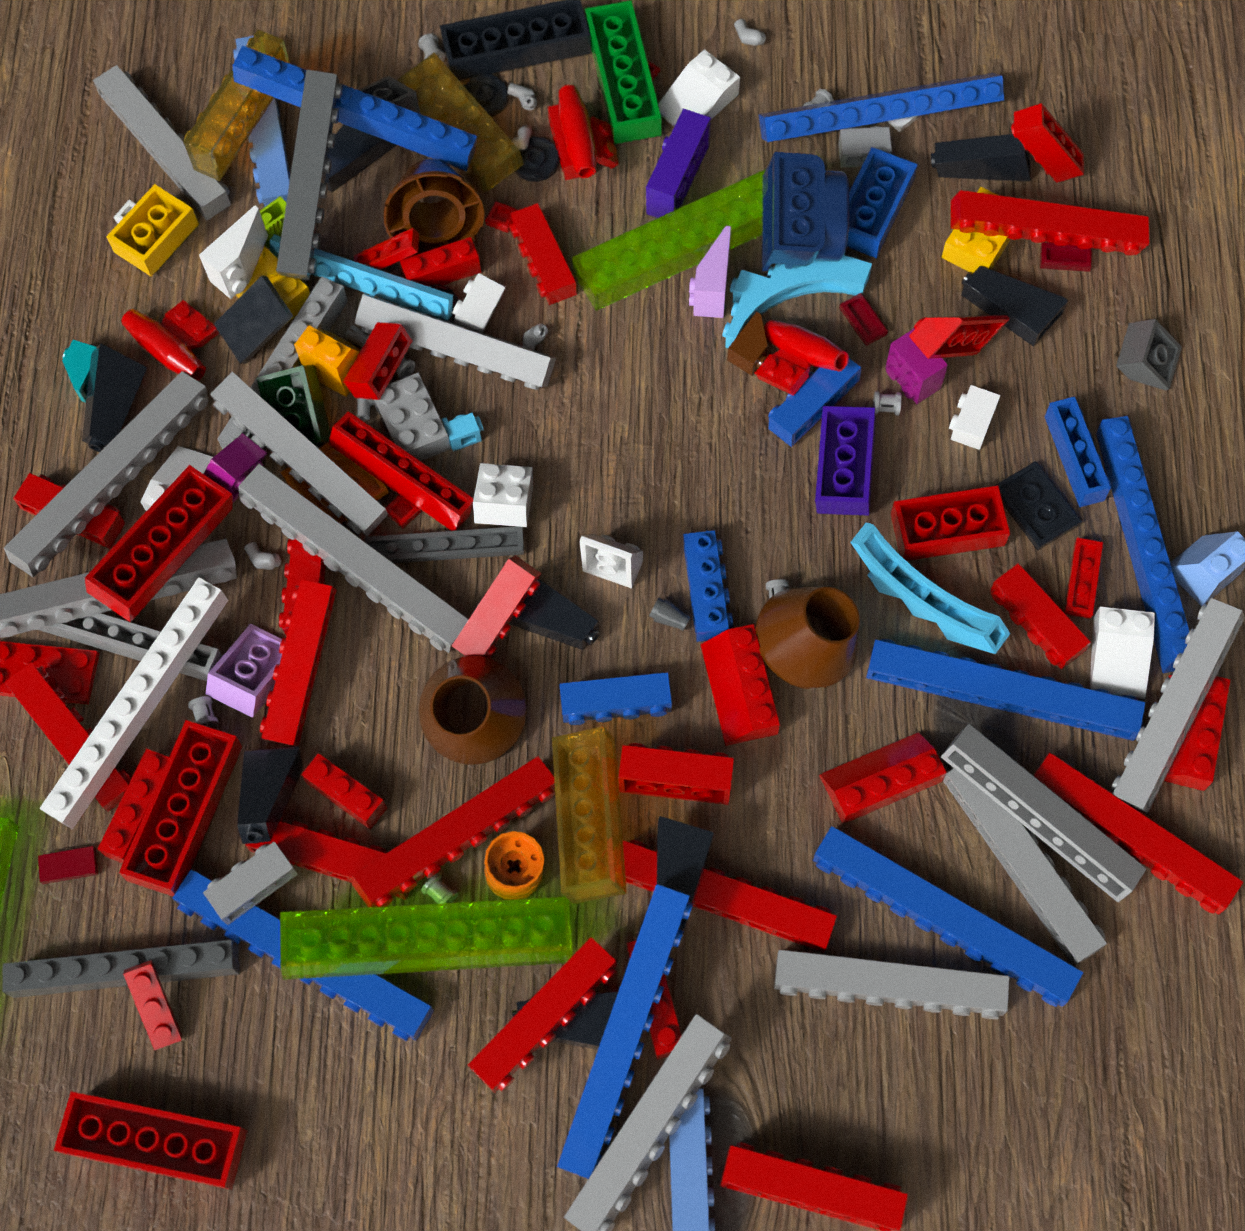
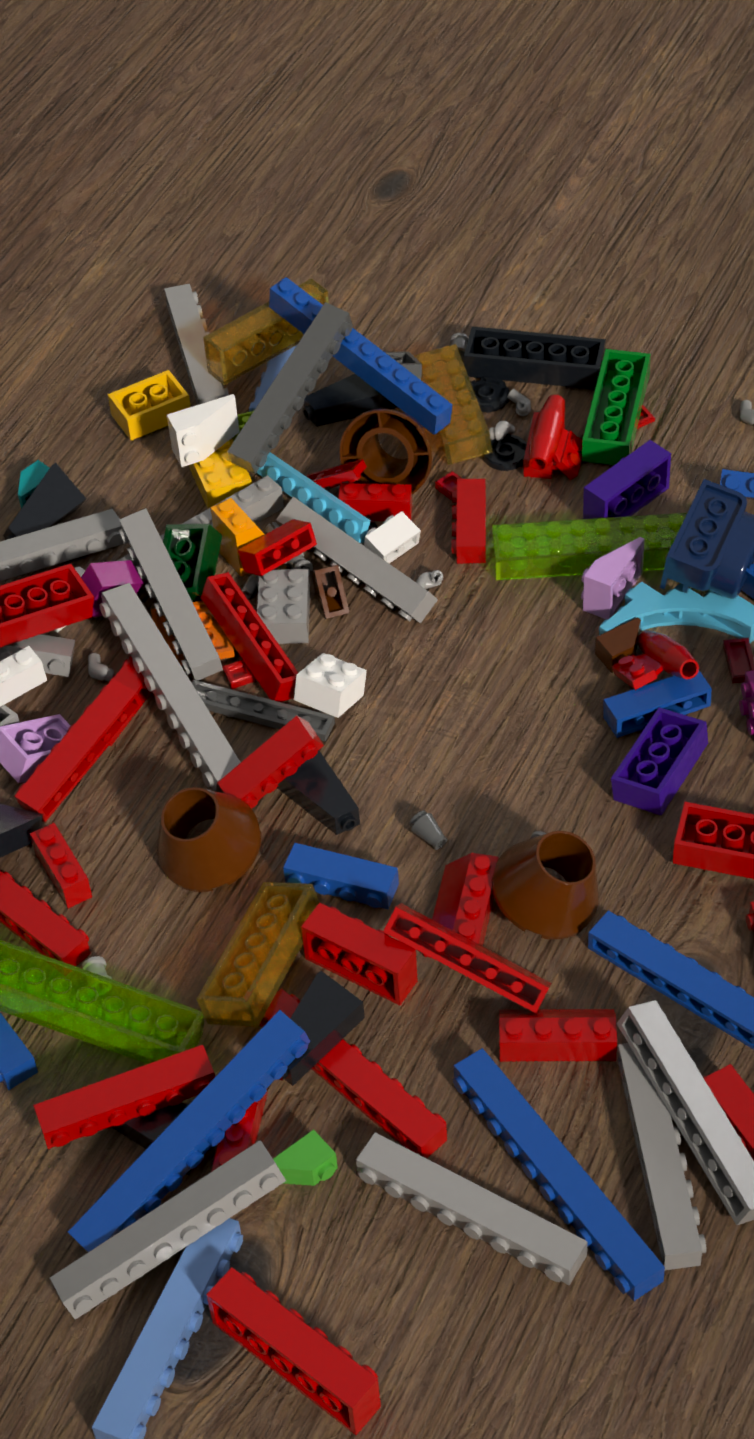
camera: 25 degrees right, 20 degrees down
(173, 337) = (118, 489): red plate -> none
(253, 319) = (192, 489): black tile -> none
(446, 384) = (330, 591): none -> reddish brown slope
(454, 834) = (133, 925): red brick -> none
(463, 430) = (324, 629): medium azure brick -> none
(514, 850) = (173, 969): orange wheel -> none
(610, 559) = (396, 763): white slope -> none
(701, 87) = (687, 438): white slope -> none
(706, 584) = (476, 814): blue brick -> none
(729, 999) = (307, 1161): none -> bright green slope
(779, 744) = (467, 957): none -> red brick
(887, 402) = (731, 736): light grey bush -> none
(923, 598) = (655, 867): medium azure arch -> none

